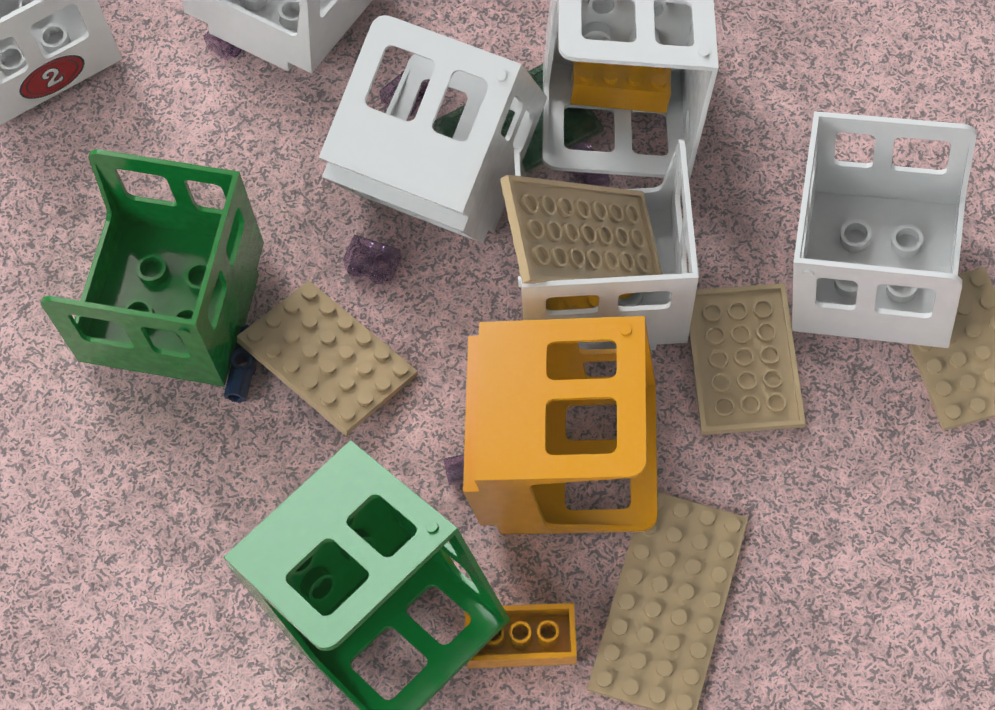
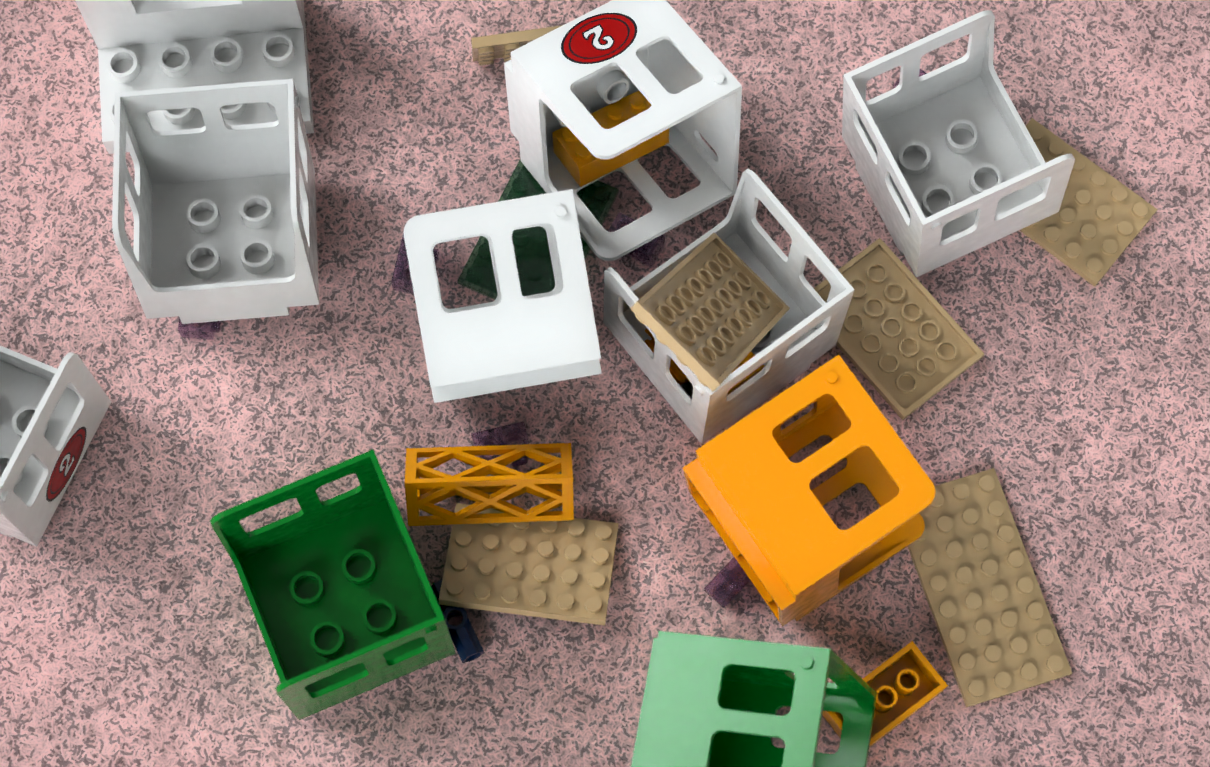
camera: 40 degrees left, 5 degrees up
(385, 318) = (505, 484): none -> light orange piece

